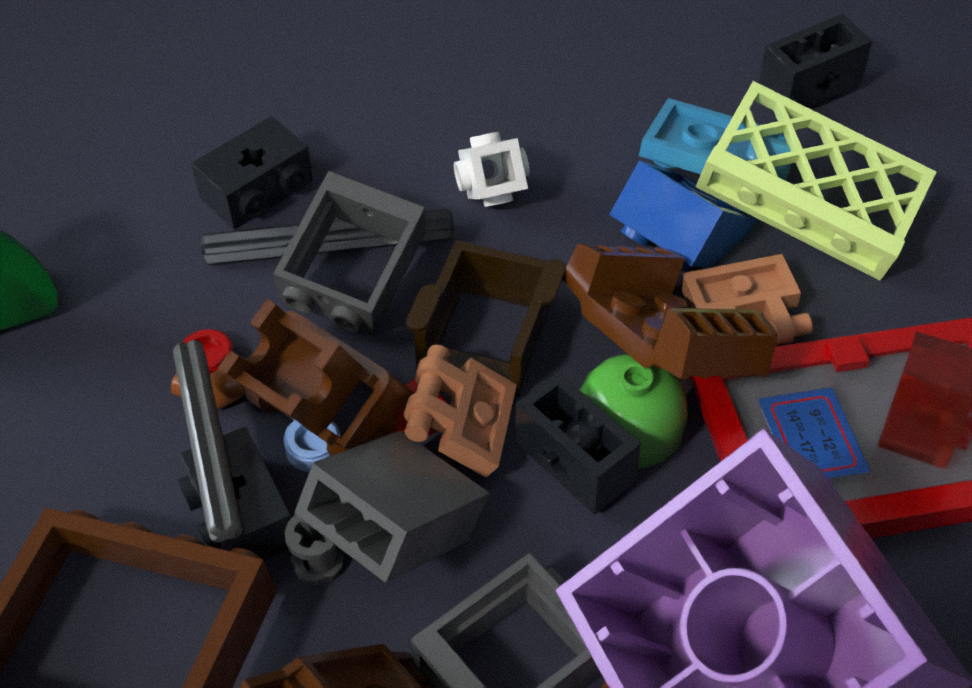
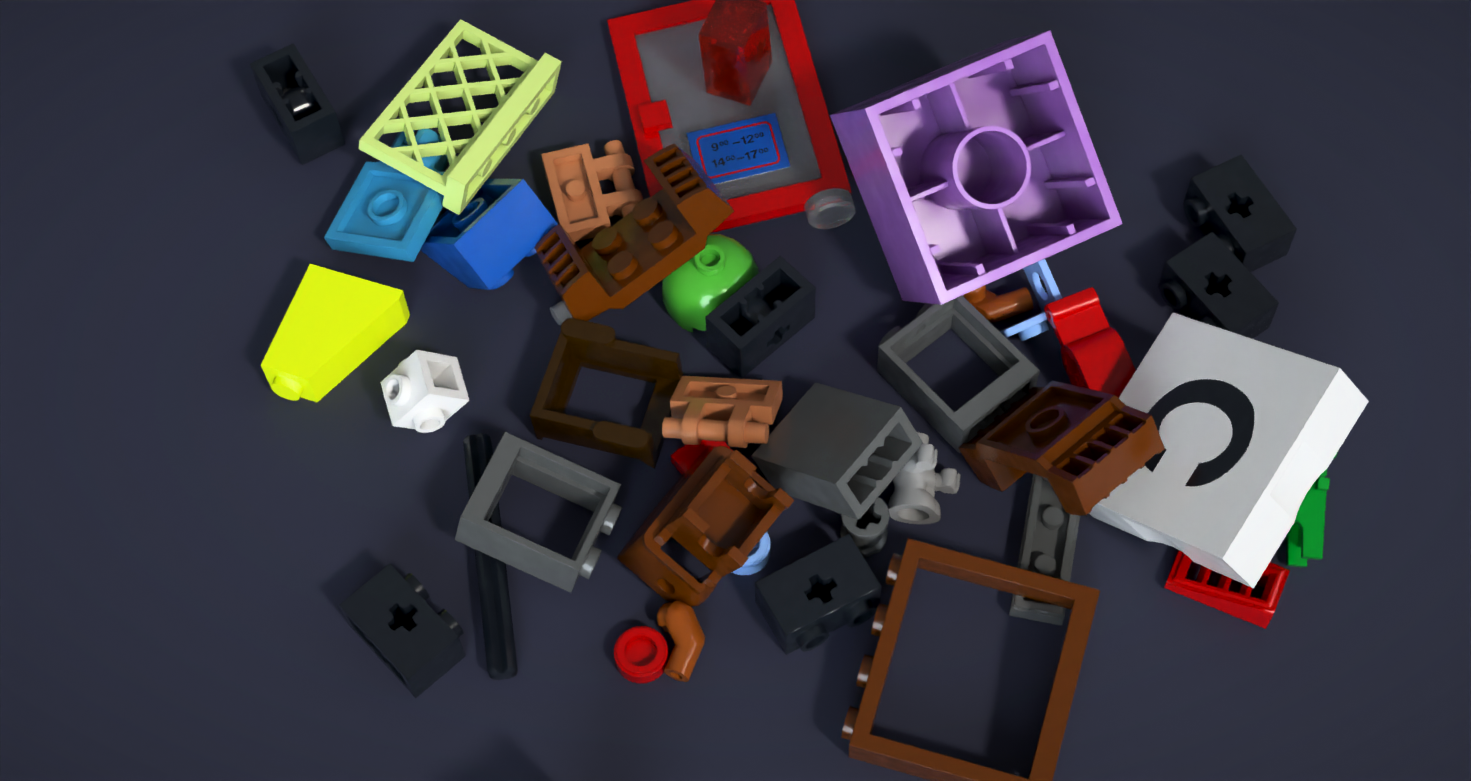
camera: 90 degrees left, 10 degrees up
(207, 442) = (777, 605): dark grey axle -> none
(364, 604) = (916, 487): none -> light grey piece
(564, 108) = (330, 332): none -> neon yellow slope

